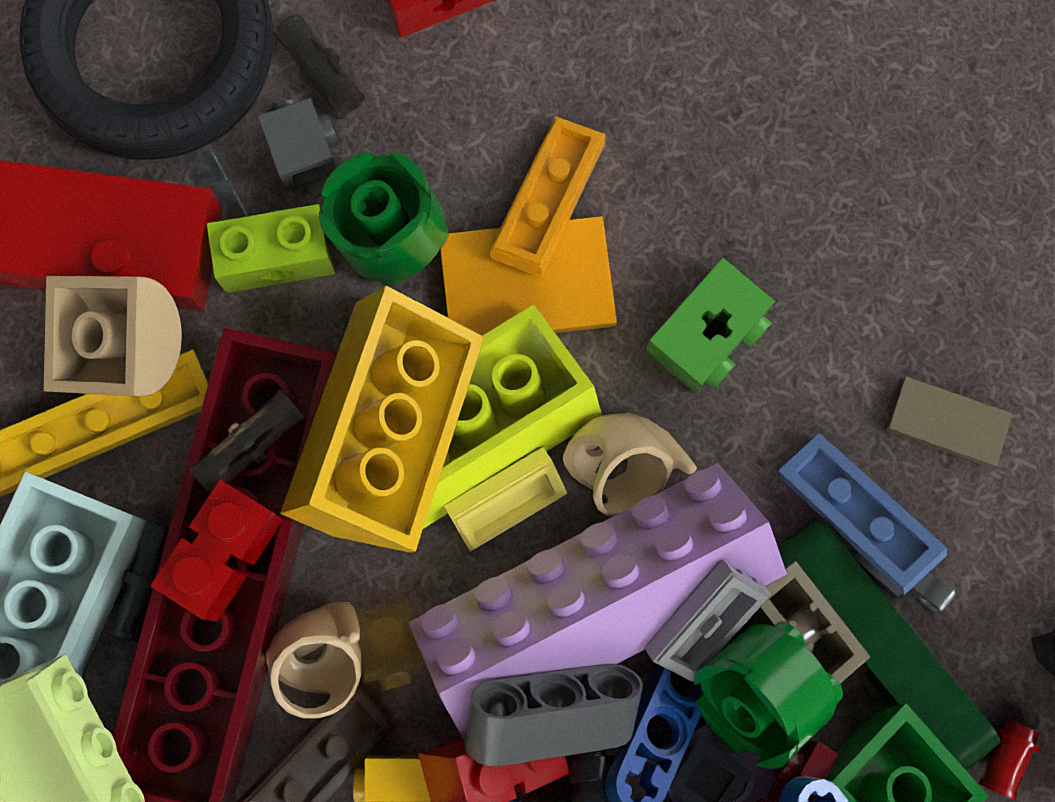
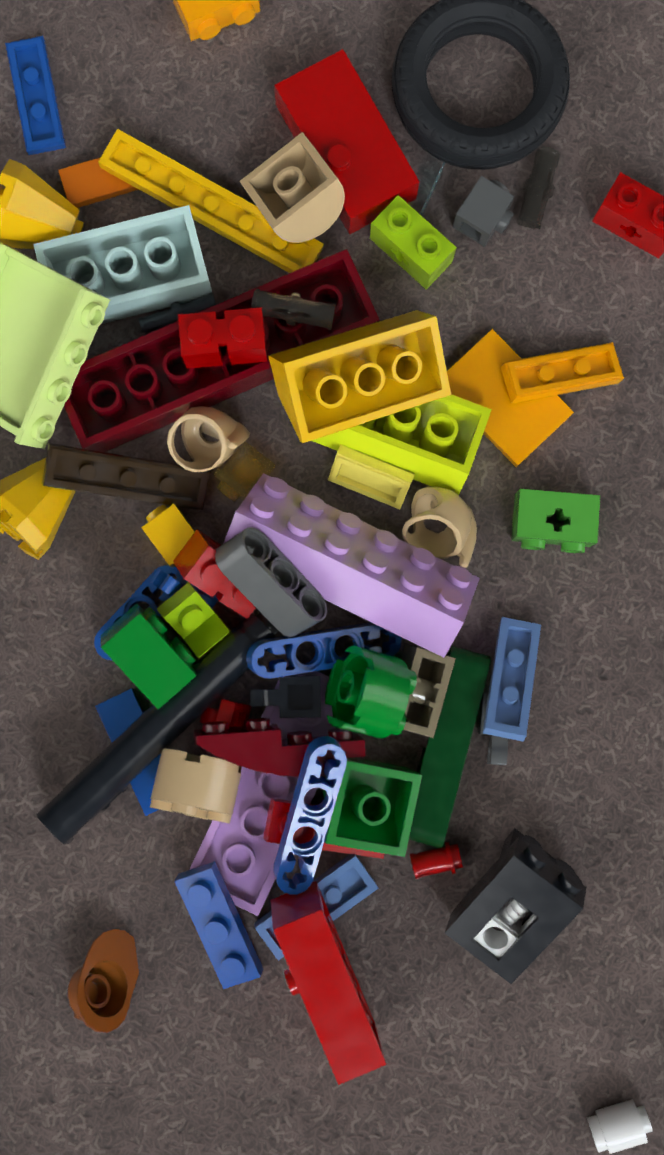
camera: 50 degrees right, 5 degrees up
(382, 216) = (477, 288): green brick -> none
(707, 620) = (384, 625): light grey tile -> none
(949, 422) = (604, 695): dark tan tile -> none

